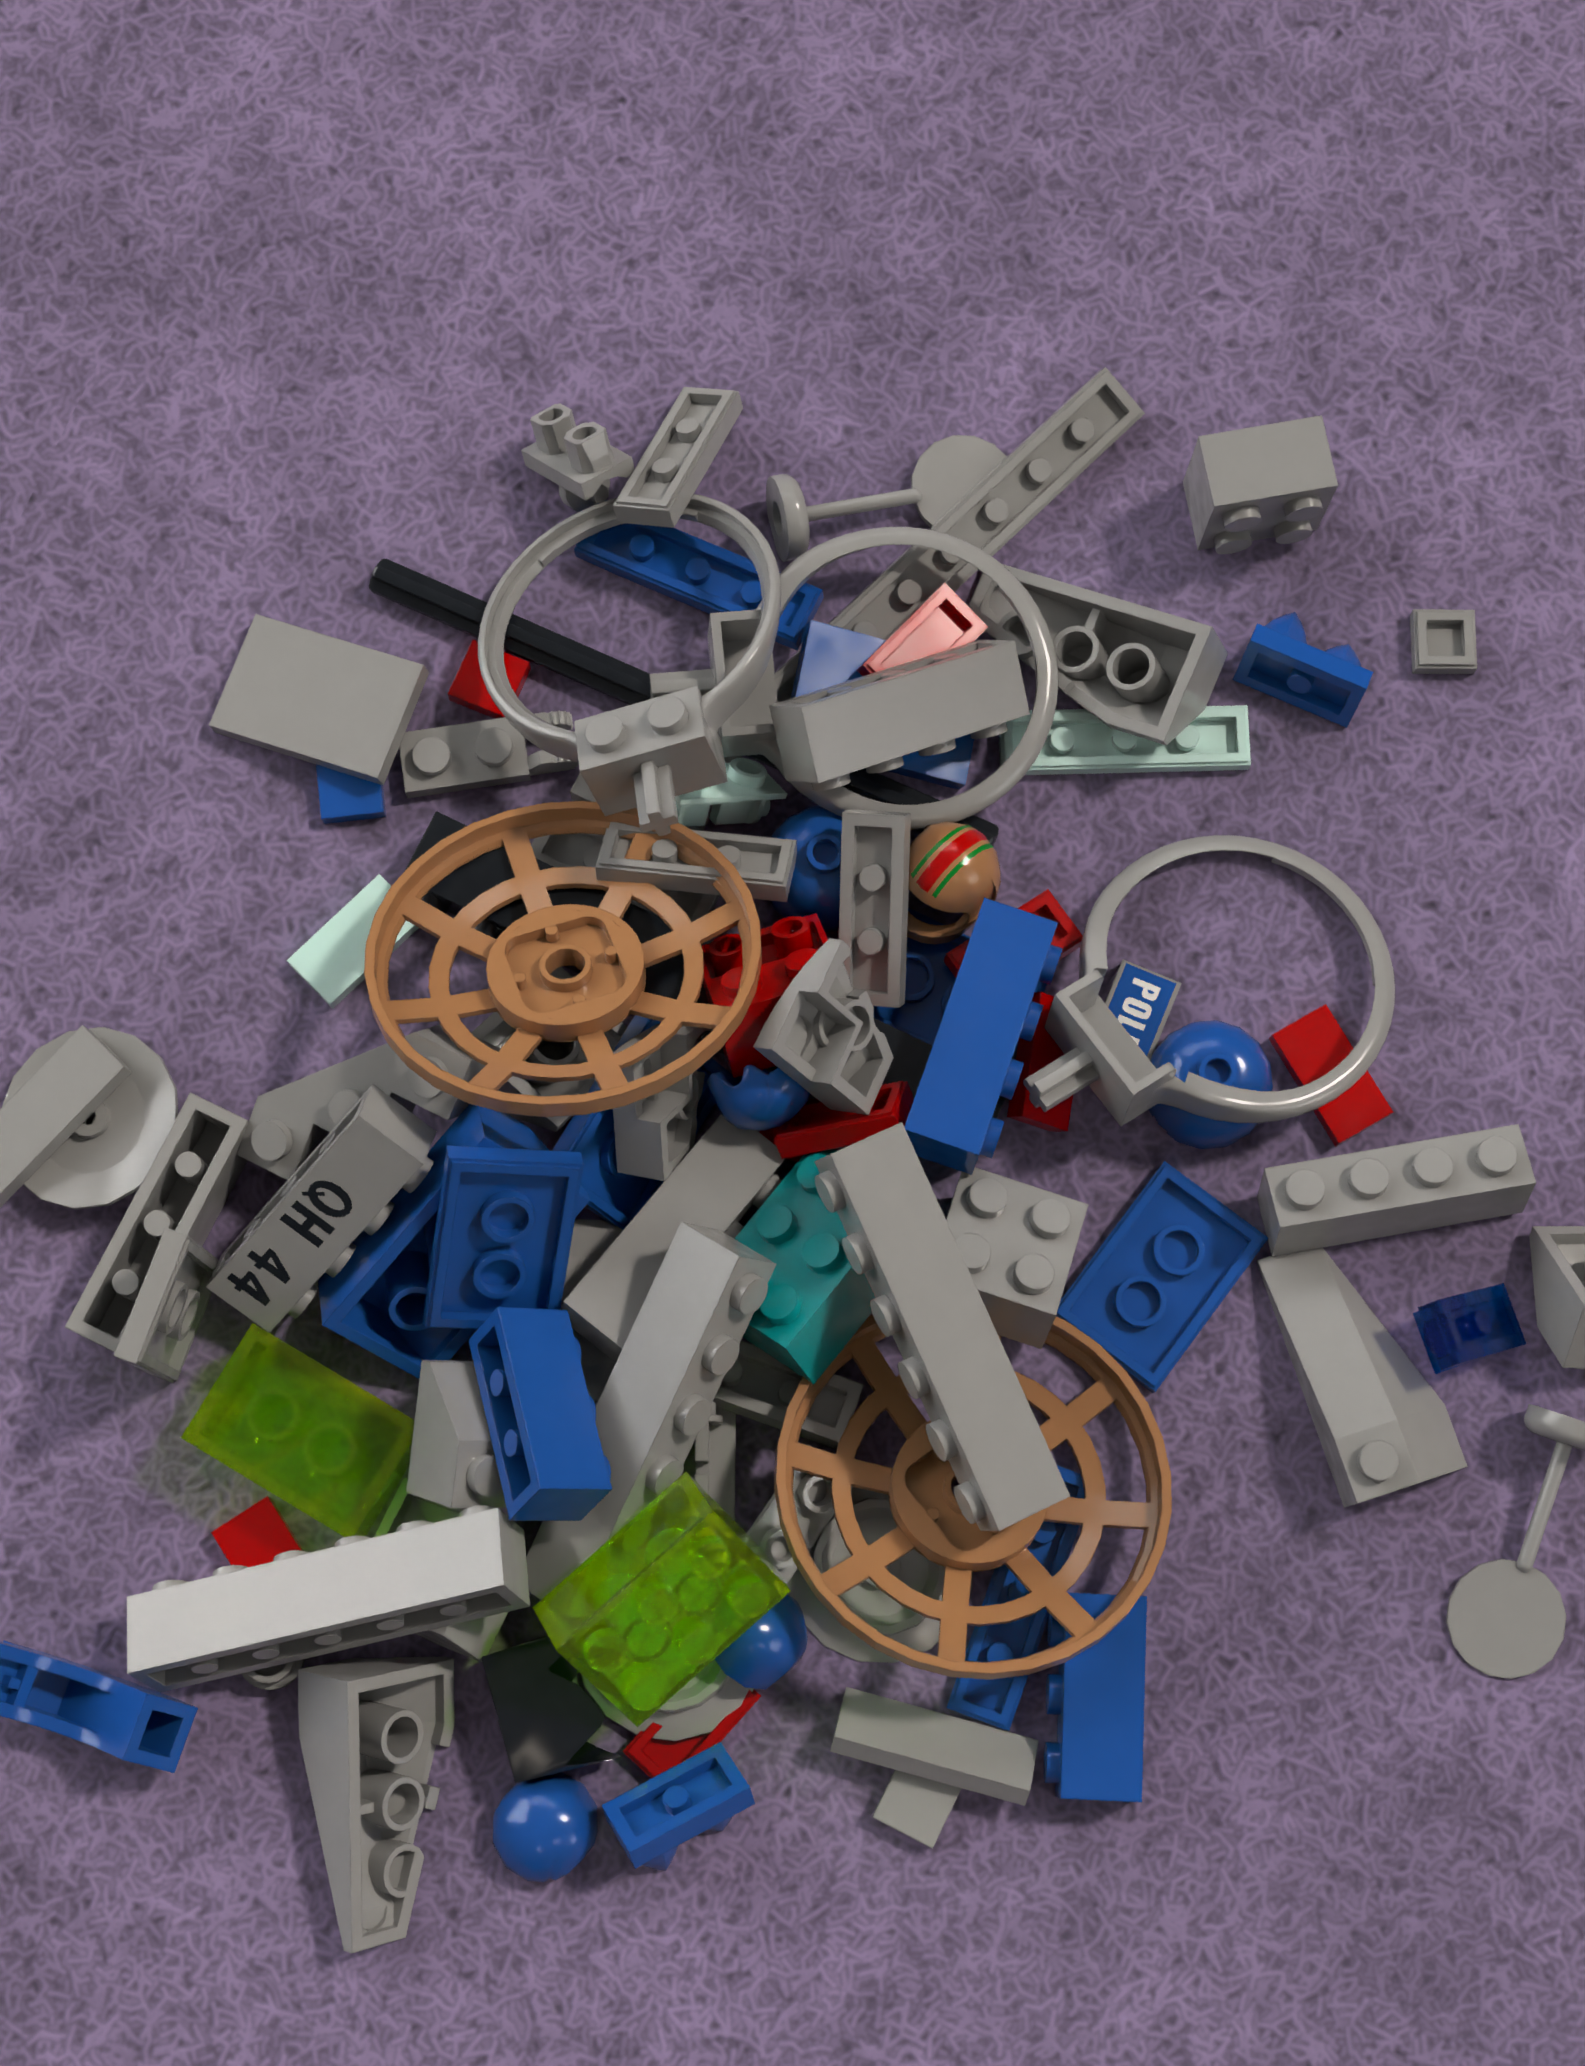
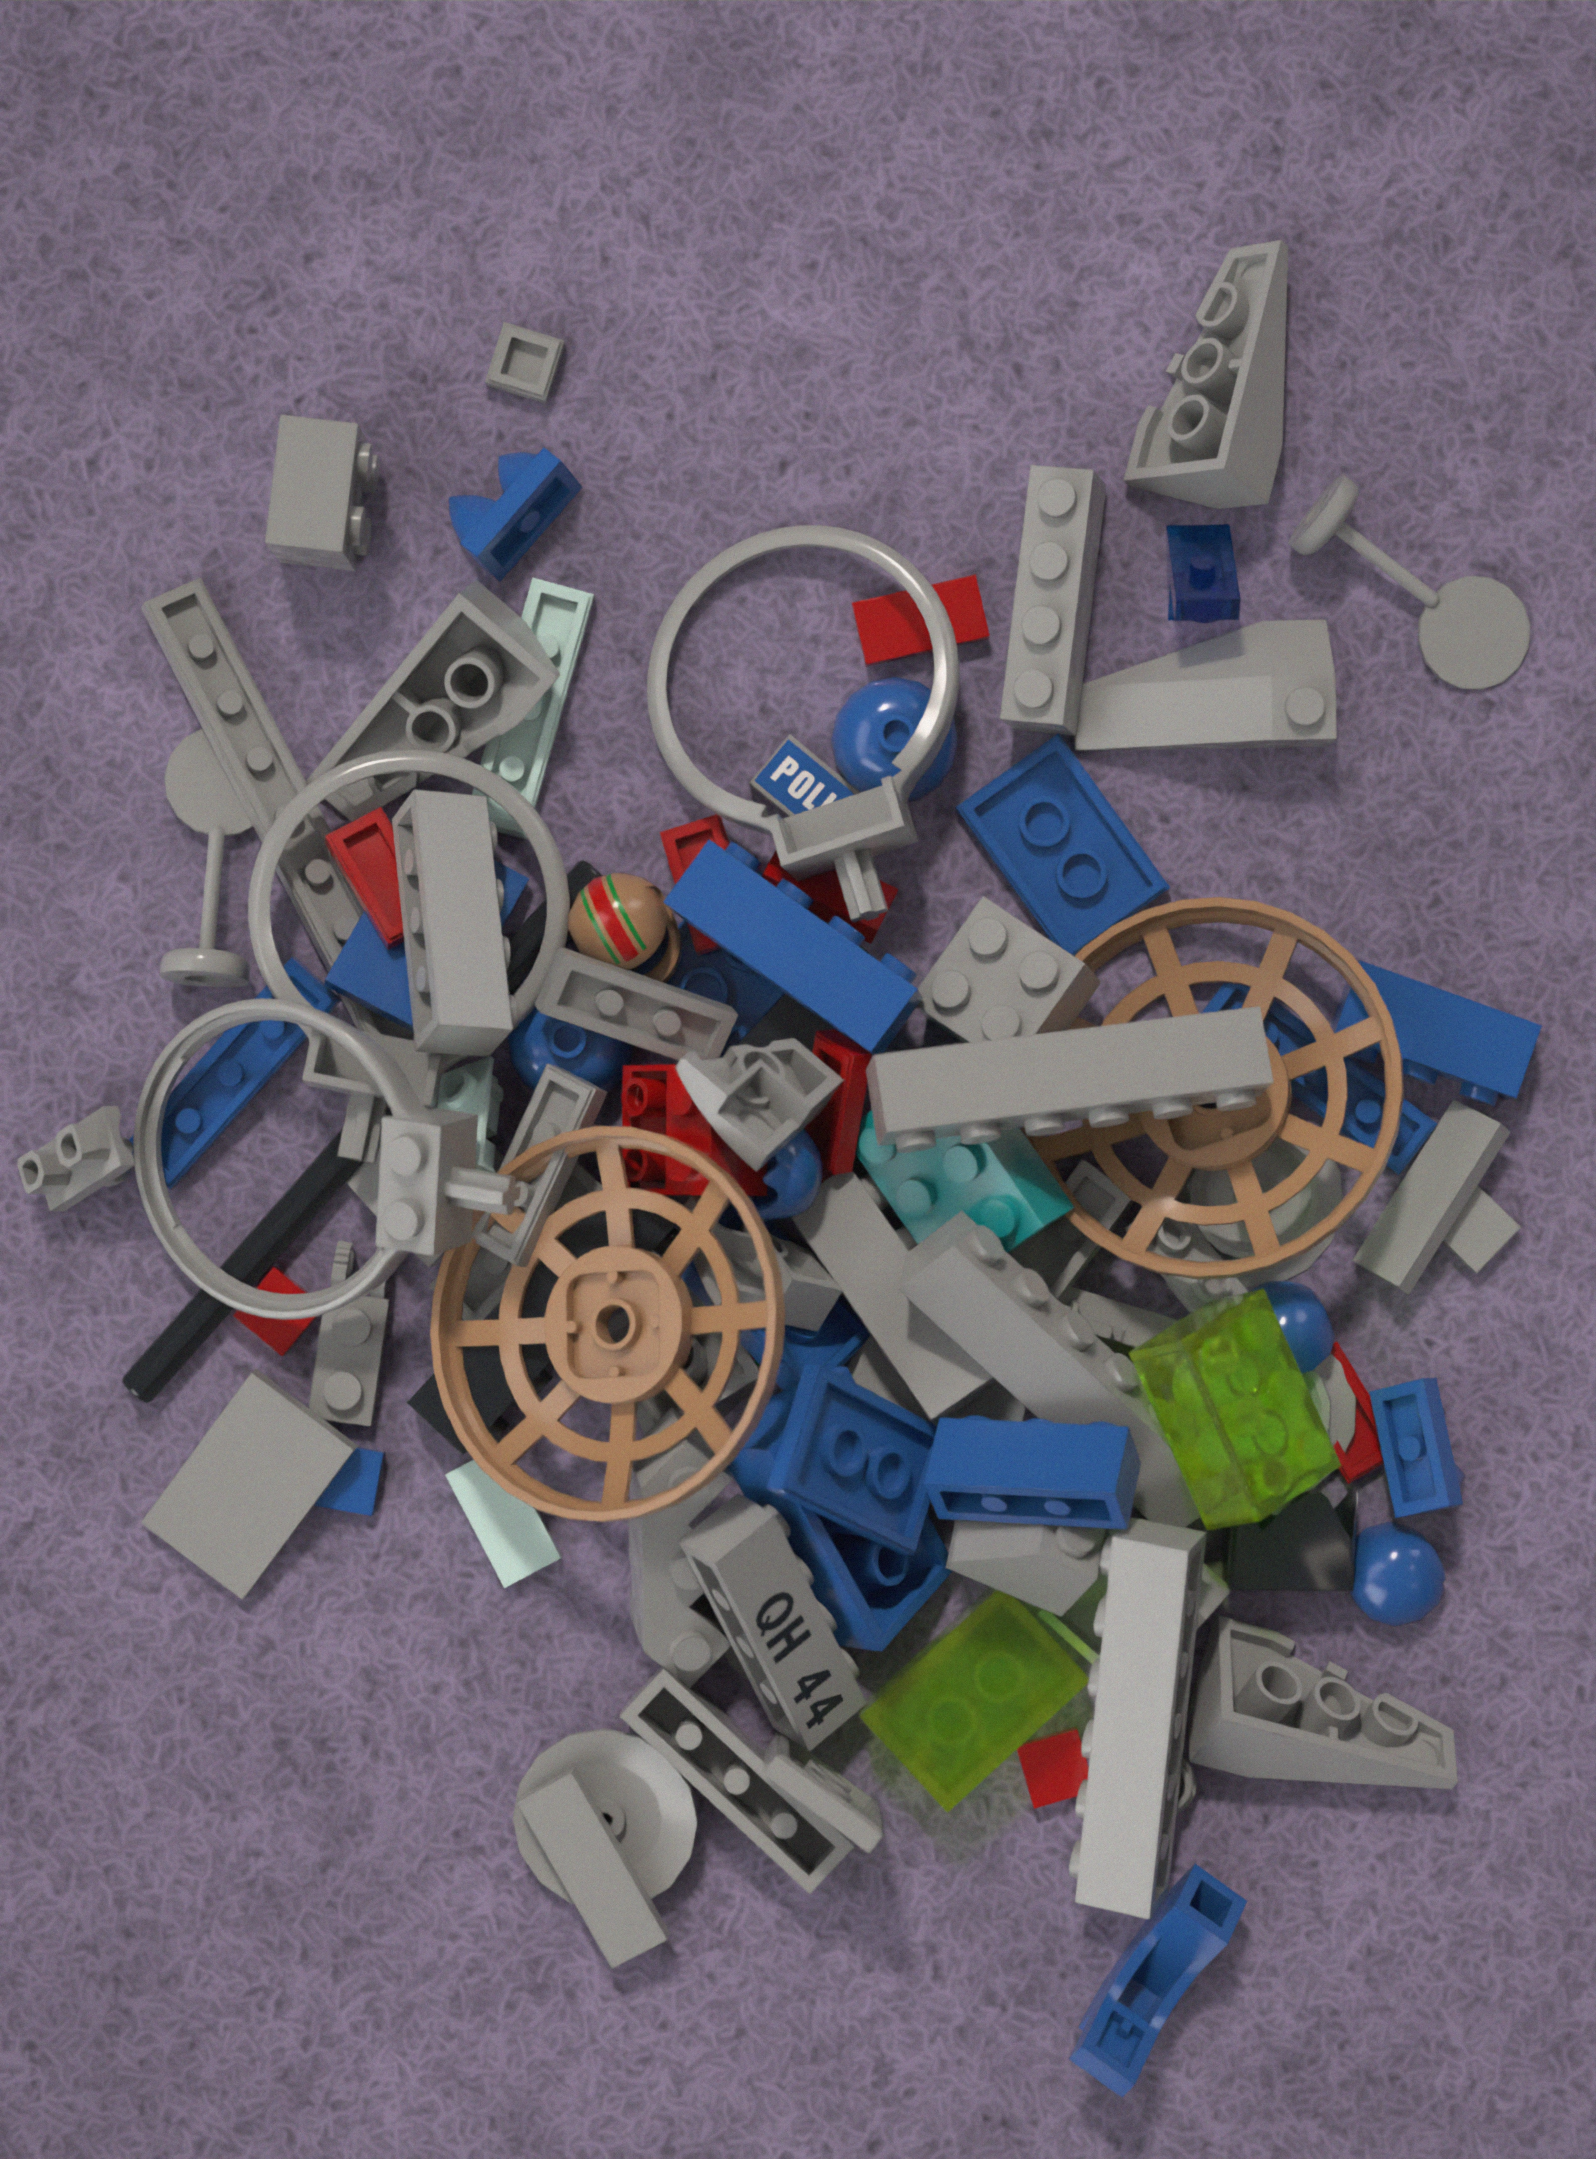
camera: 70 degrees left, 10 degrees up
(678, 457) = (112, 1058): light grey tile -> none

